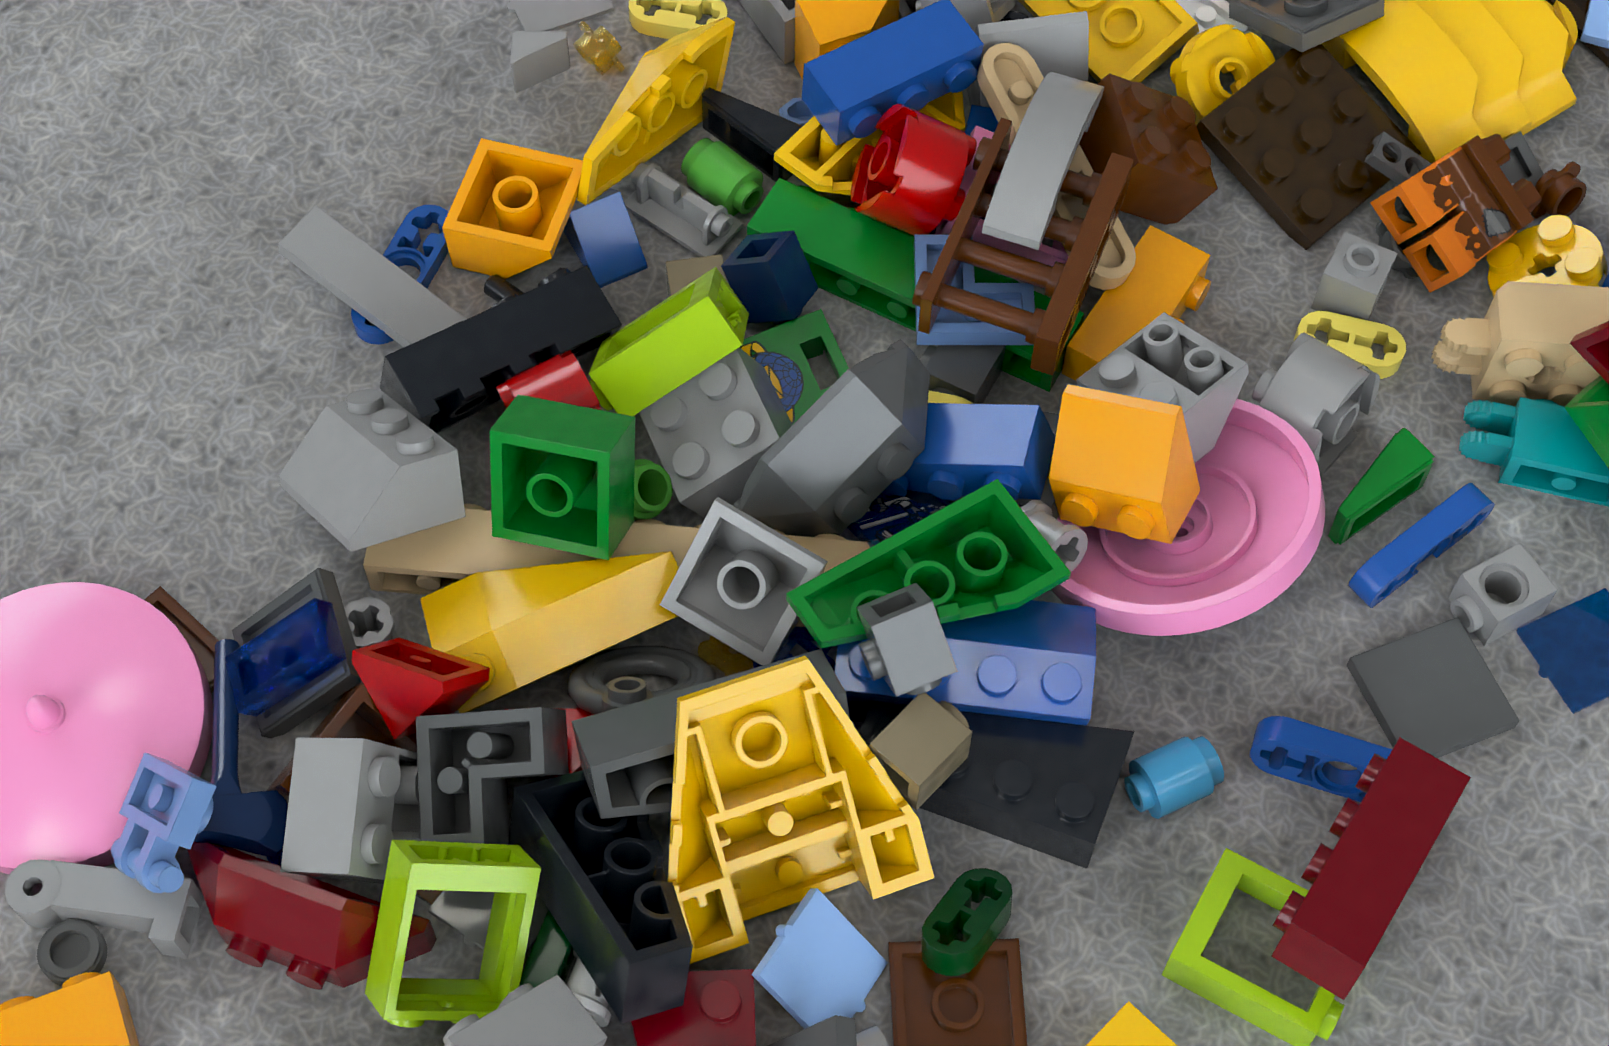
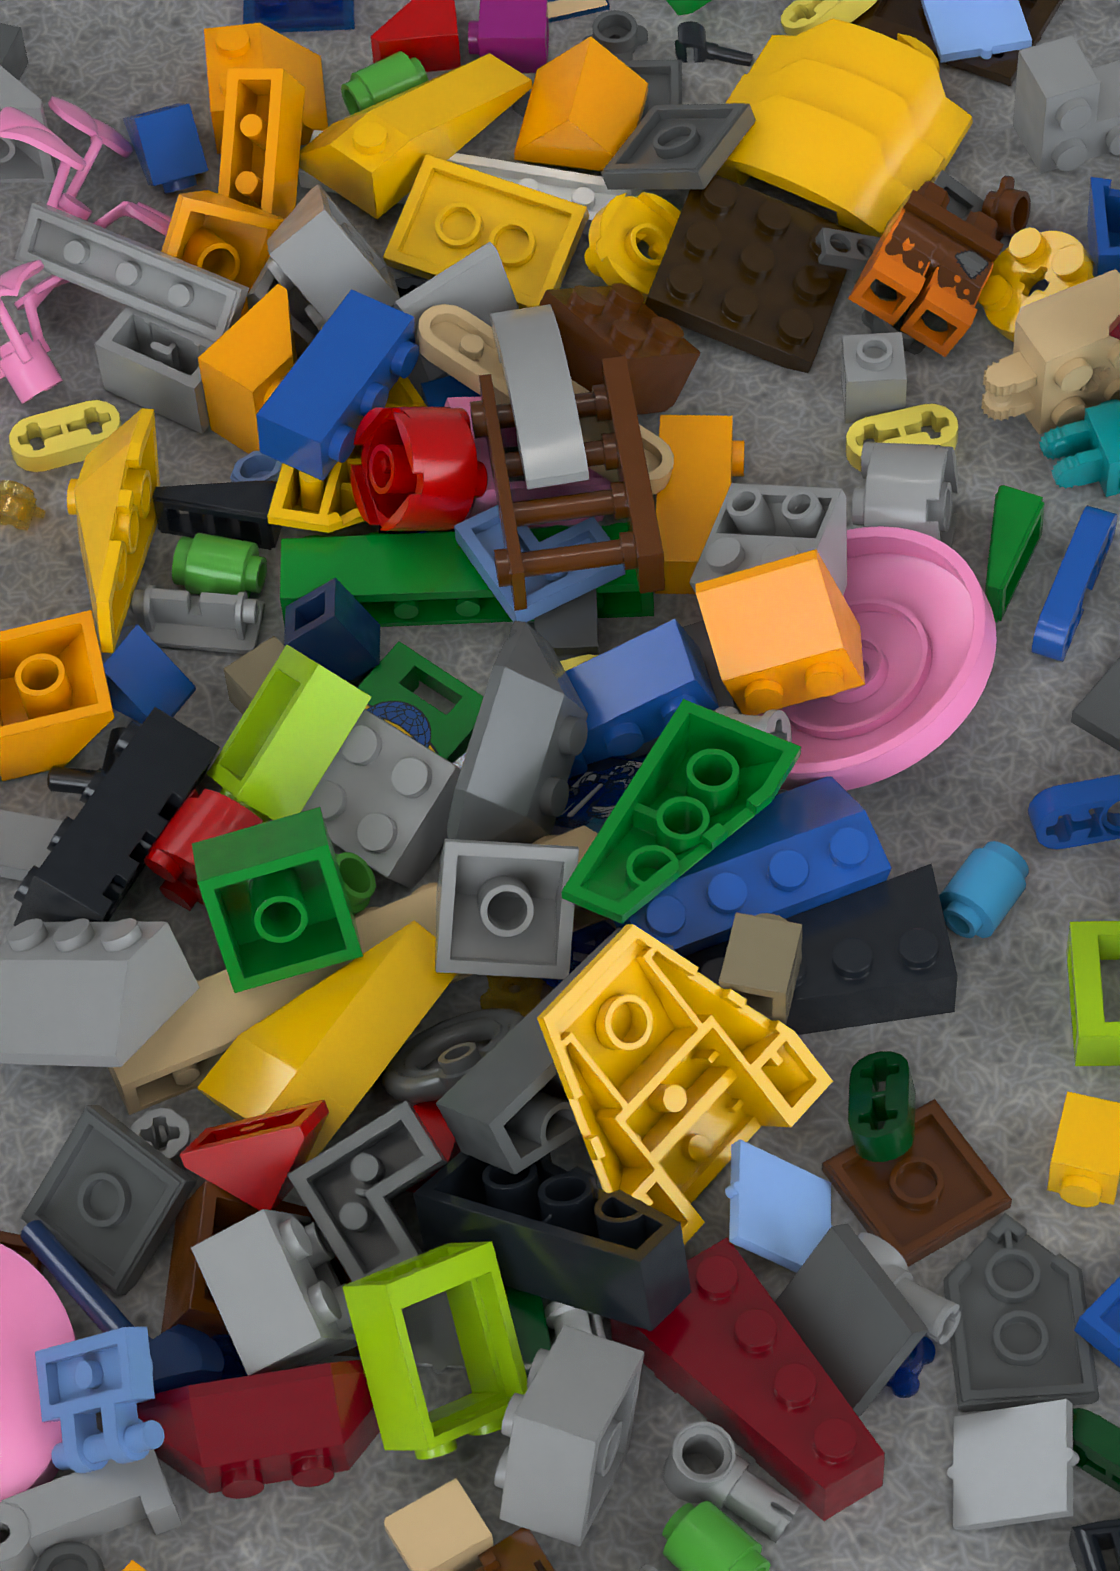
camera: 25 degrees left, 5 degrees down
(285, 657) = (111, 1200): clear blue plate -> none
(905, 641) = (699, 873): brick -> none

